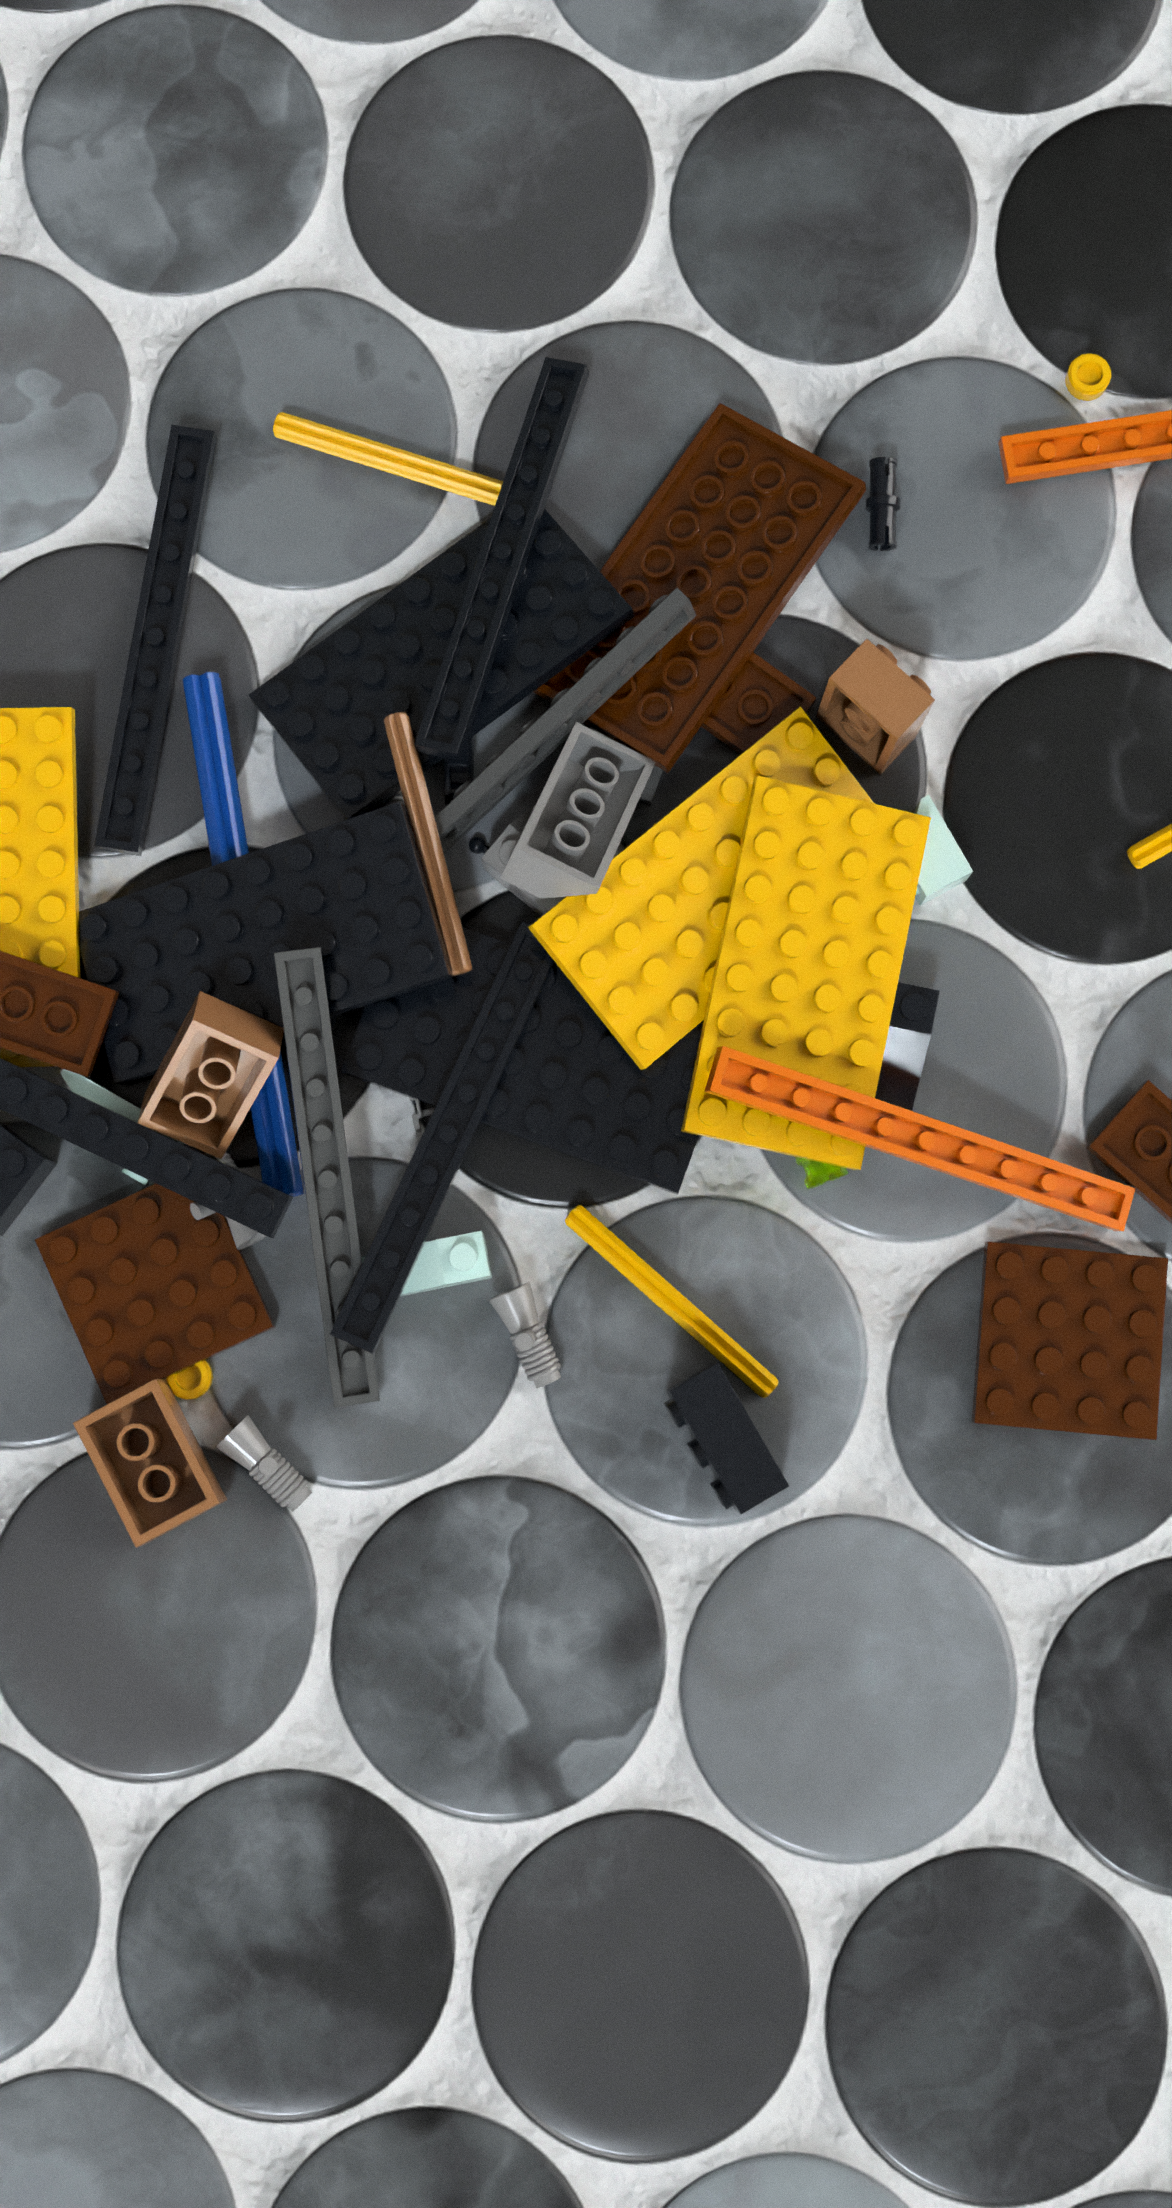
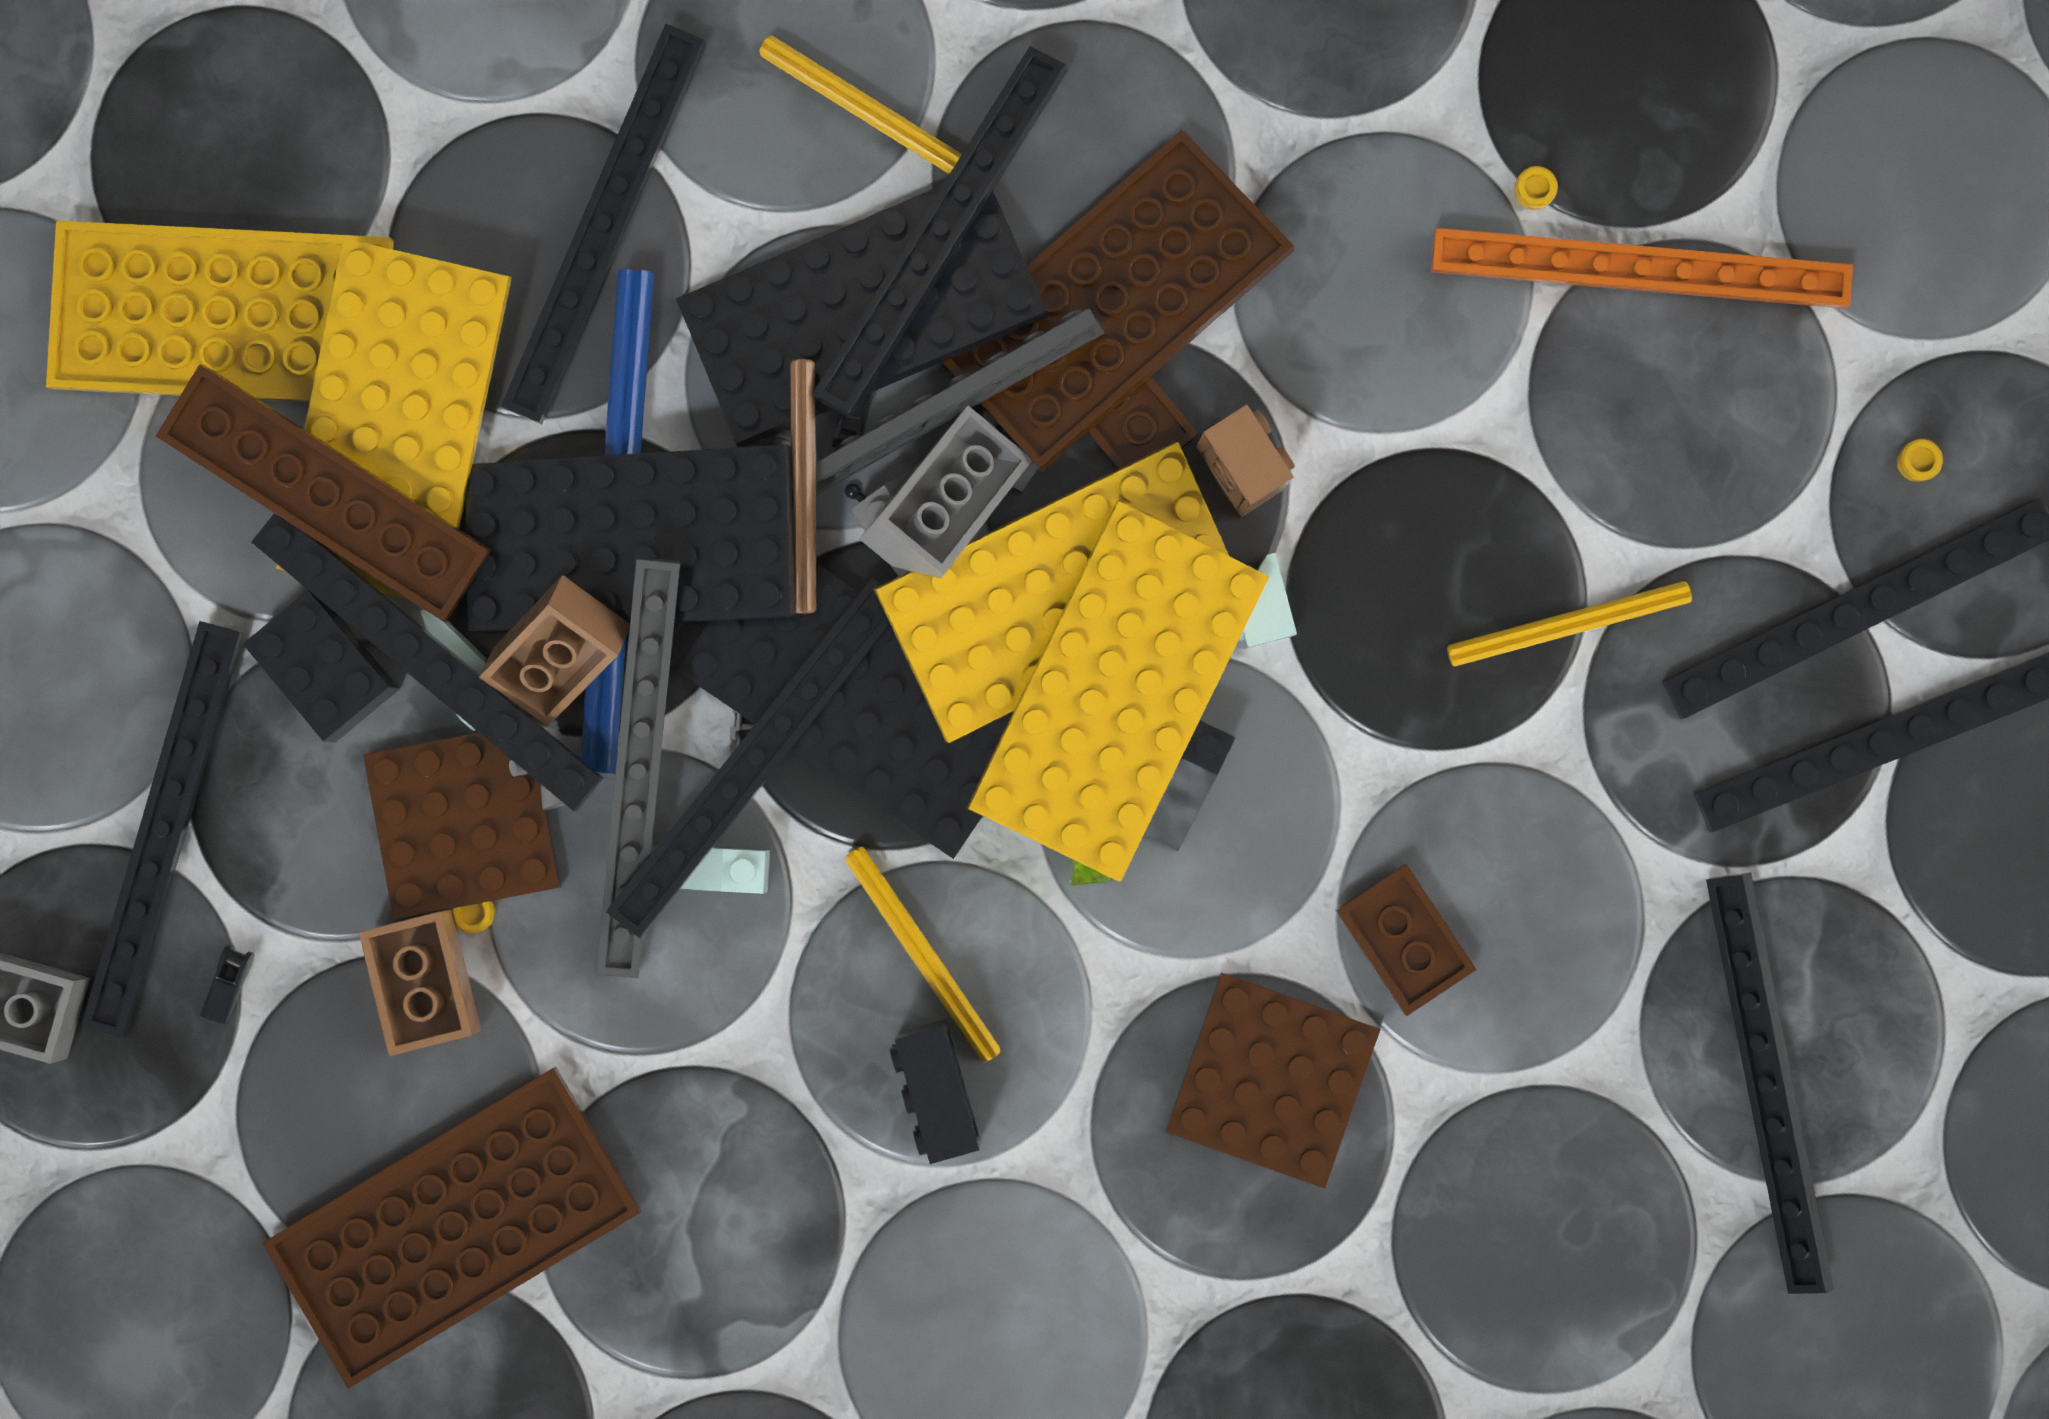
camera: 15 degrees right, 5 degrees up
(244, 1718) = (452, 1227): none -> reddish brown plate
(272, 1471) = (523, 1011): light grey piece -> none
(520, 1316) = (786, 956): light grey piece -> none
(883, 504) = (1309, 263): black pin -> none
(918, 1138) = (1179, 869): orange plate -> none

